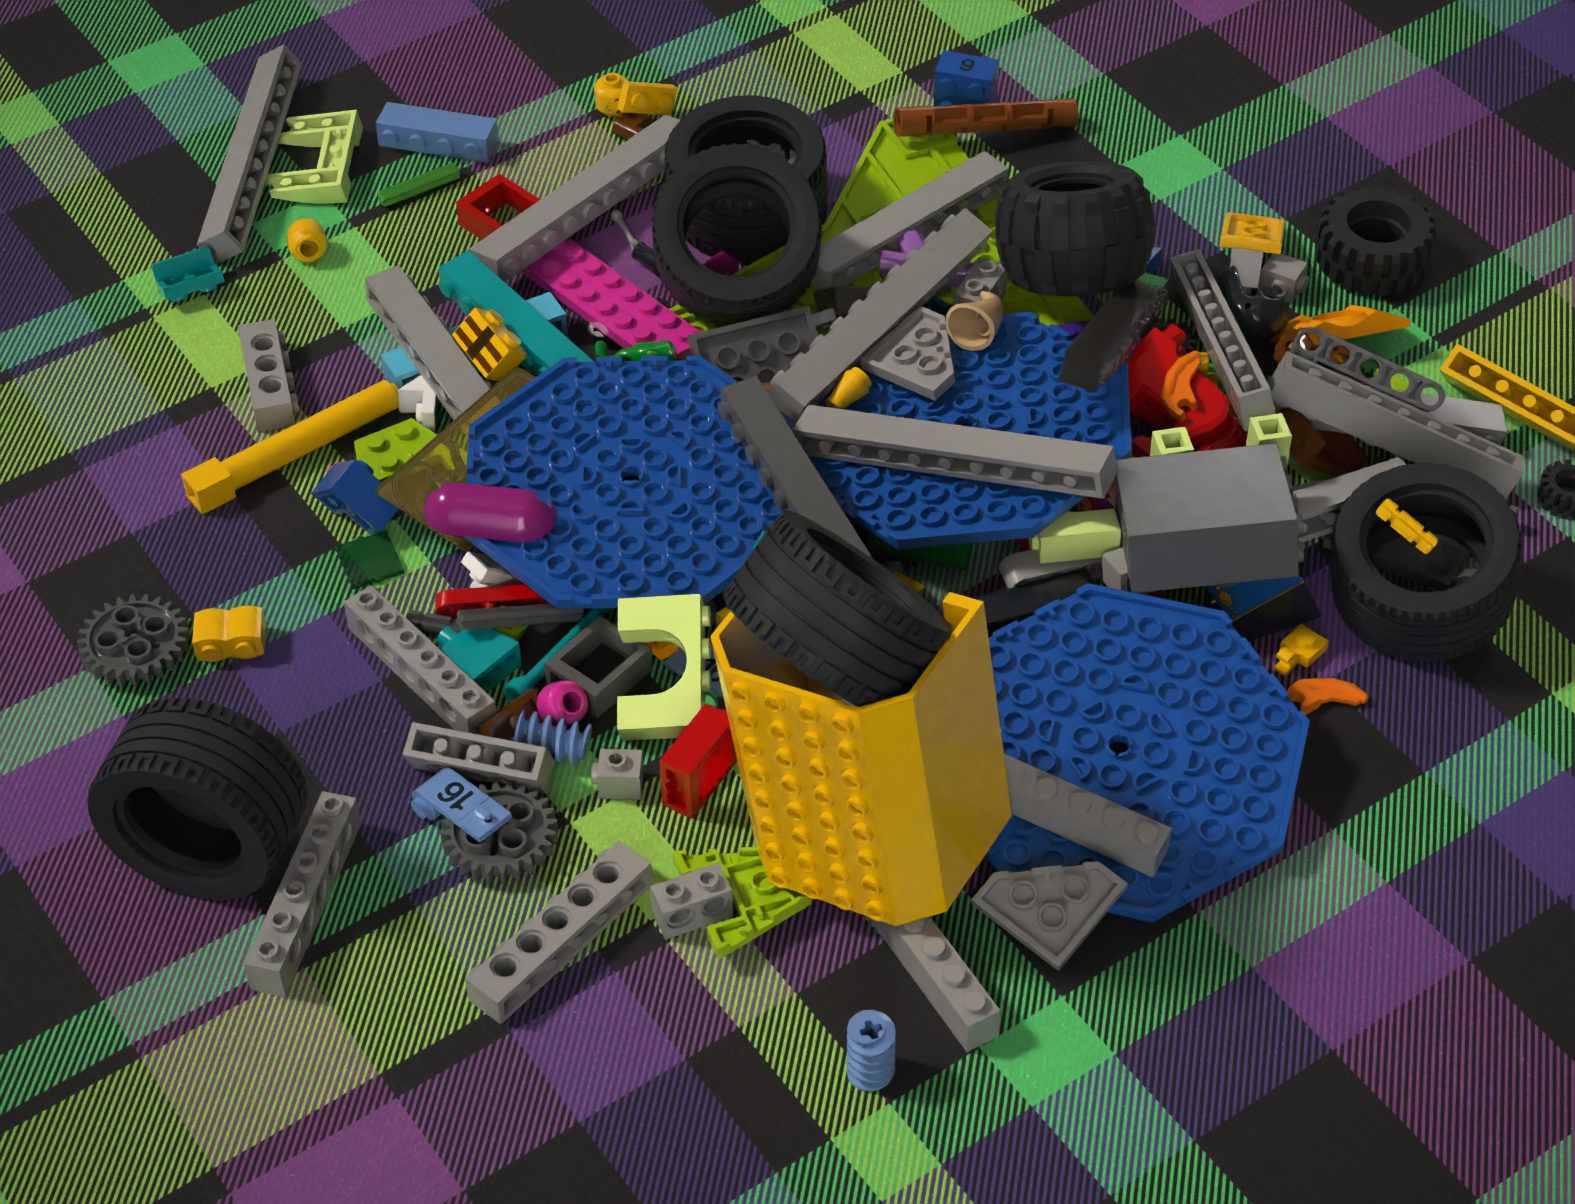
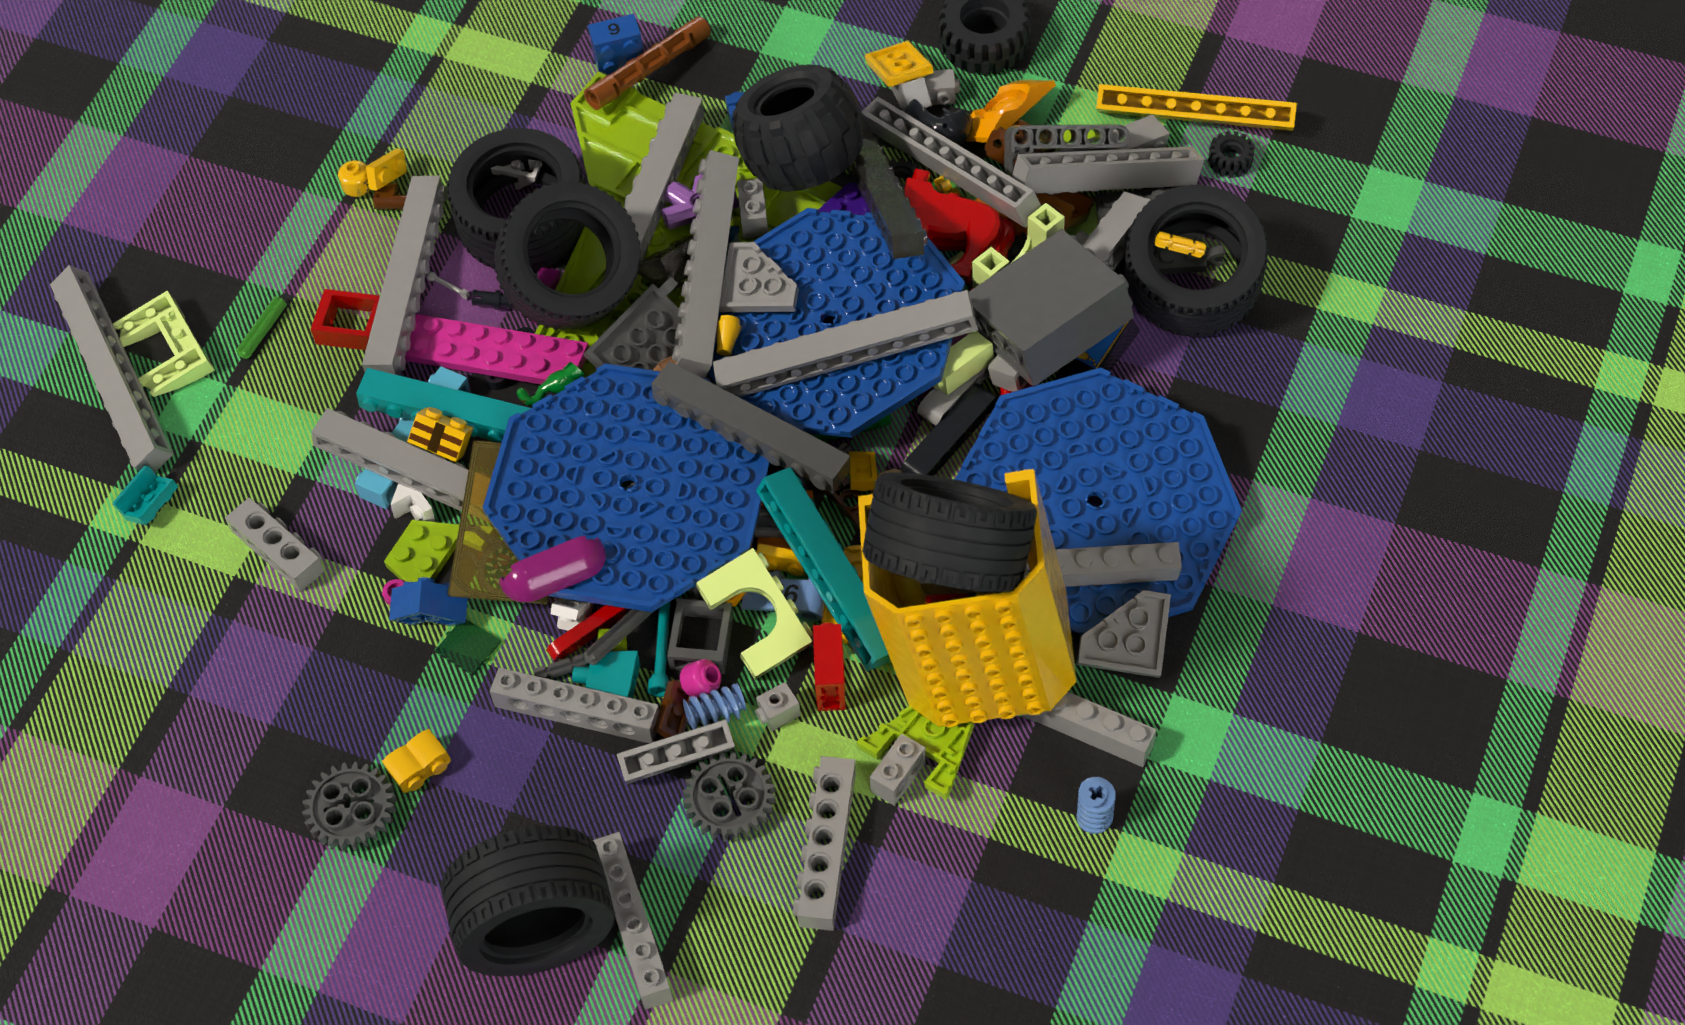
camera: 30 degrees left, 10 degrees up
(215, 481) = (308, 647): yellow brick -> none
(306, 240) = (214, 419): yellow head -> none
(437, 132) = (242, 277): medium blue brick -> none
(459, 802) = (690, 791): medium blue door -> none
(975, 323) = (784, 236): tan hat -> none
(1177, 388) = (954, 217): orange piece -> none
(1300, 647) = (1145, 362): yellow plate -> none
(1322, 690) = (1178, 386): orange piece -> none

